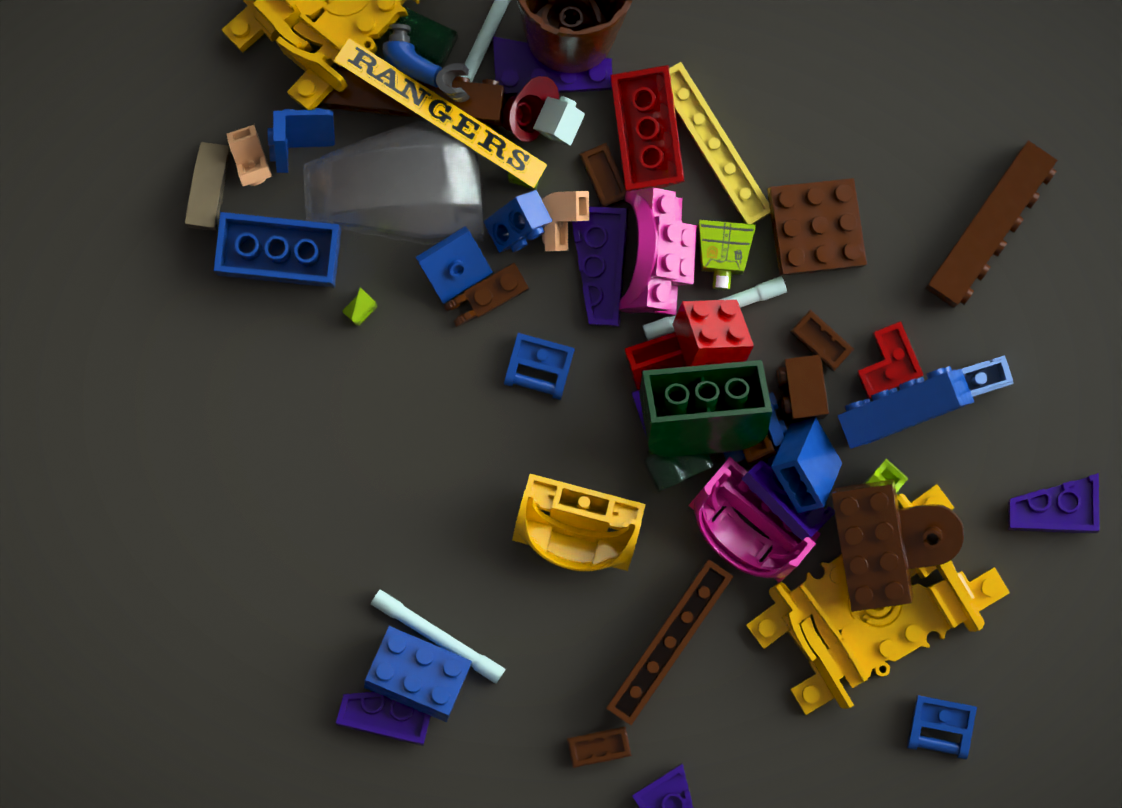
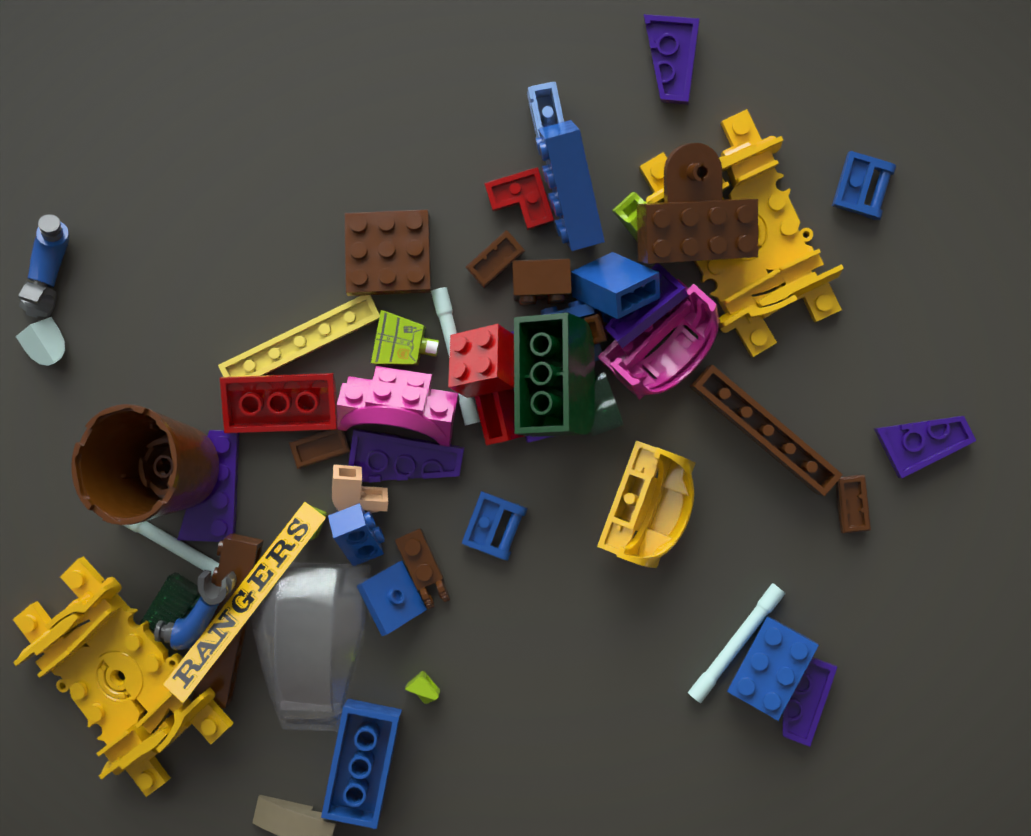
camera: 80 degrees left, 5 degrees up
(249, 156) = (269, 781): light nougat brick -> none
(299, 129) = (248, 735): blue bracket -> none
(524, 108) = (249, 510): dark red piece -> none
(559, 120) = (262, 485): light aqua brick -> none
(991, 224) = (400, 88): reddish brown brick -> none

